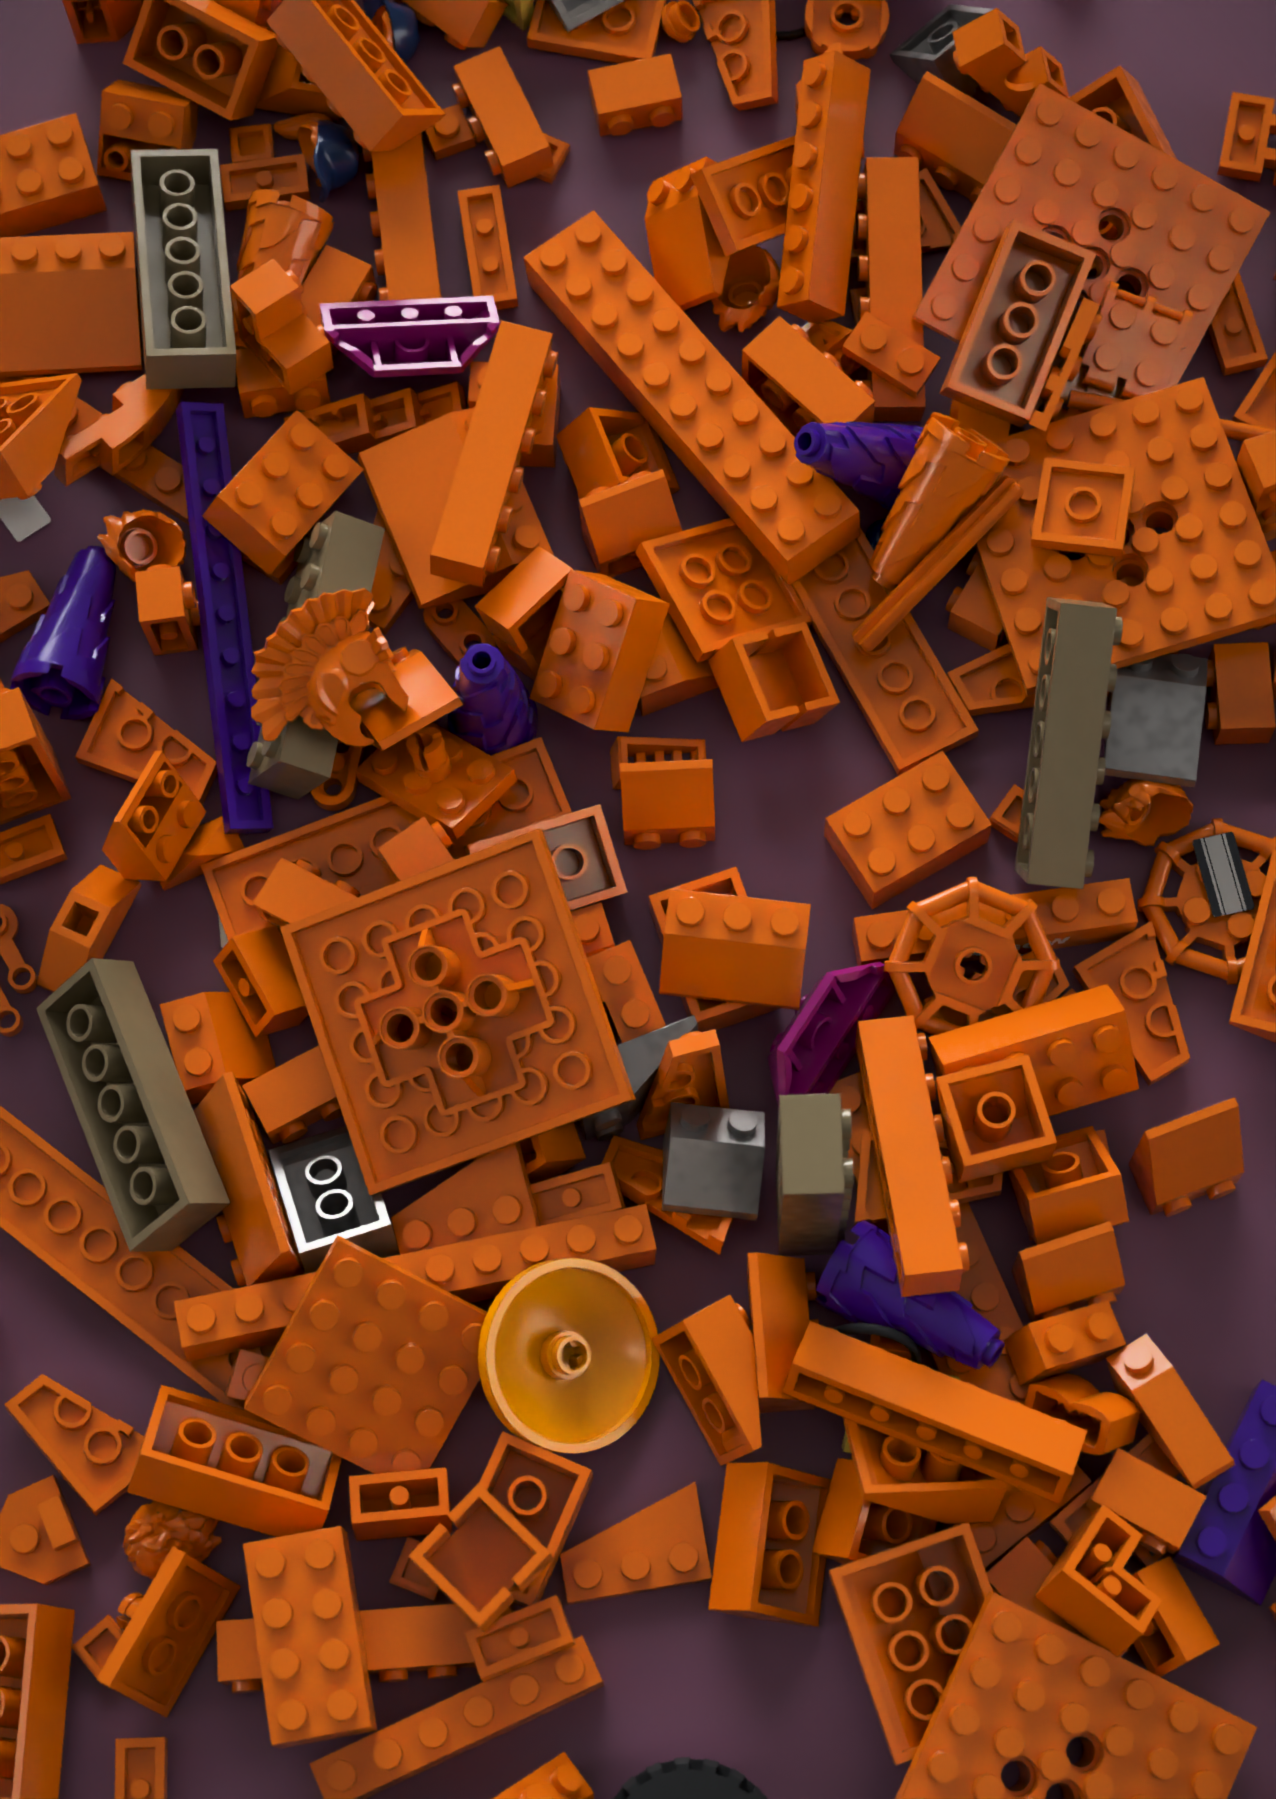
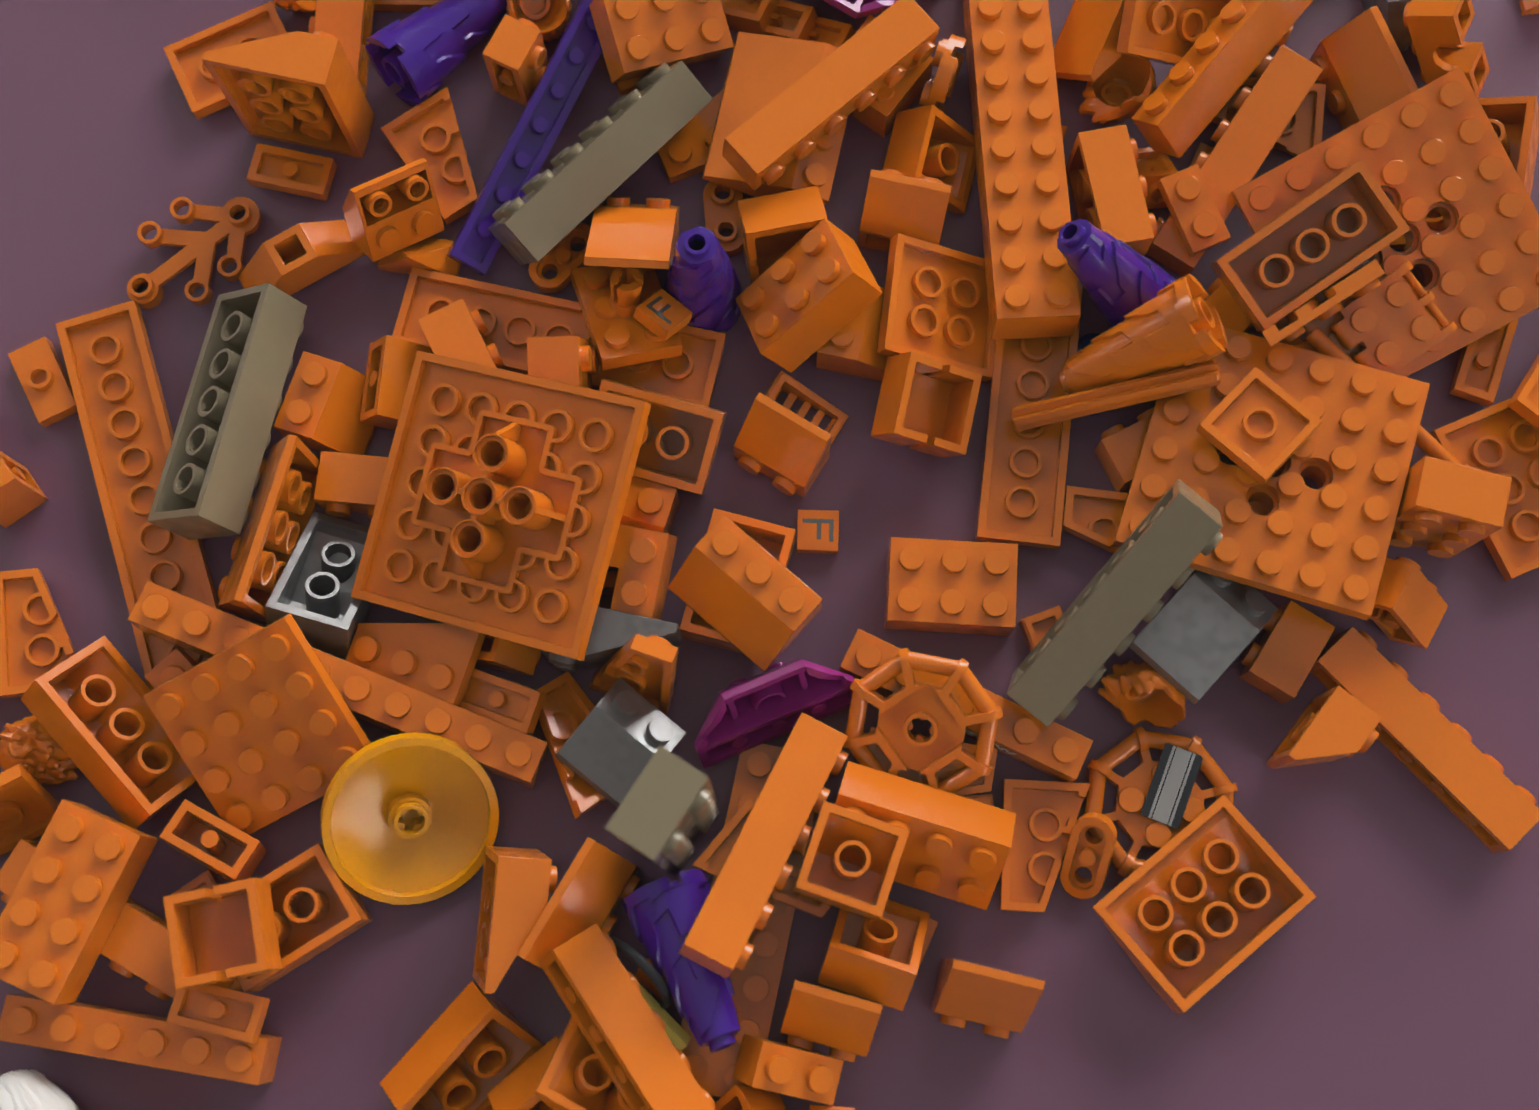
camera: 30 degrees right, 5 degrees up
(321, 663) = (583, 168): orange piece -> none
(478, 752) = (662, 314): none -> orange tile
(581, 386) = (949, 65): none -> orange plate
(642, 1553) = (367, 1002): orange wing -> none
(753, 860) = (817, 531): none -> orange tile
(1194, 981) = (1088, 853): none -> orange plate

